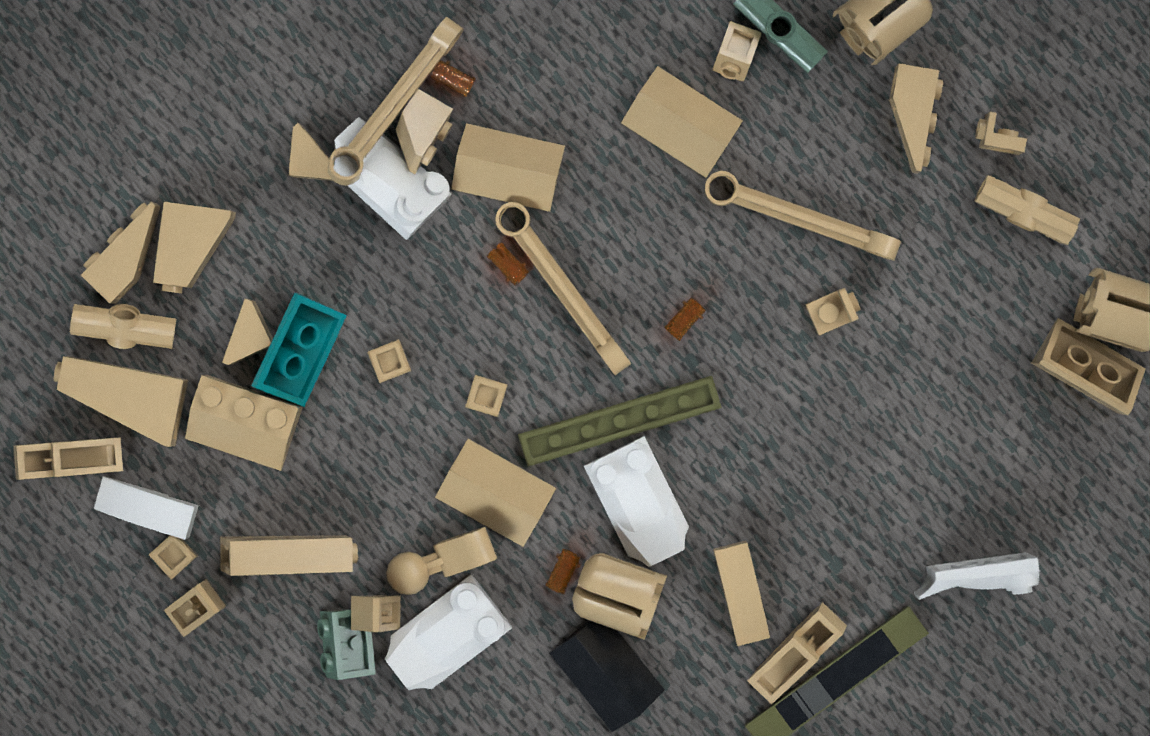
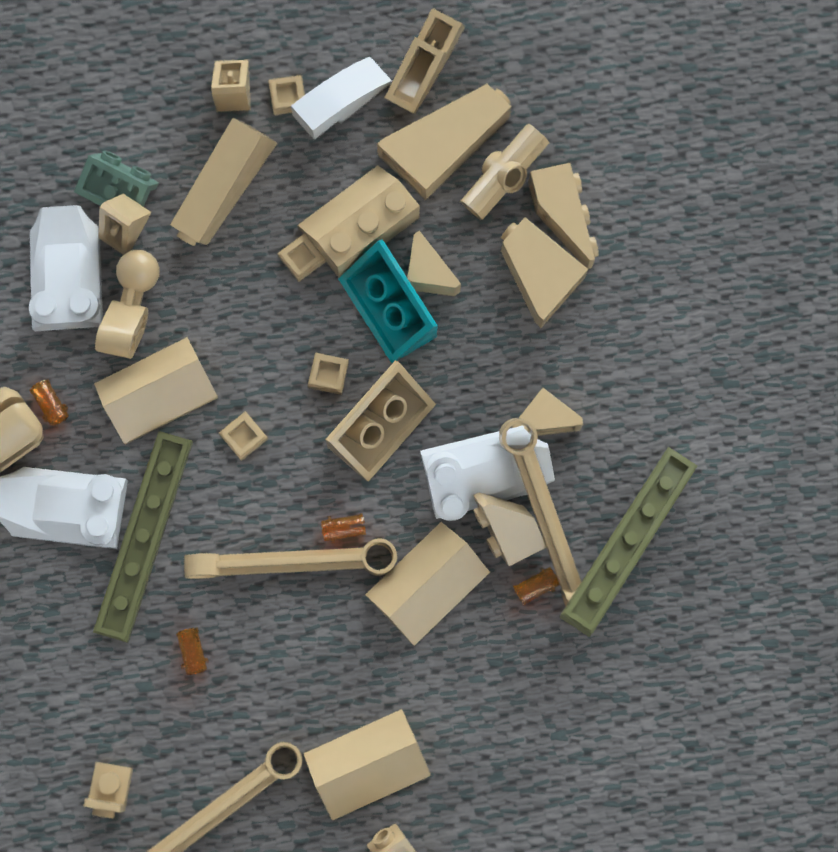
camera: 120 degrees right, 10 degrees down
(306, 448) = (301, 257): none -> tan tile
(369, 25) = (628, 542): none -> olive tile
(402, 289) = (380, 421): none -> tan slope

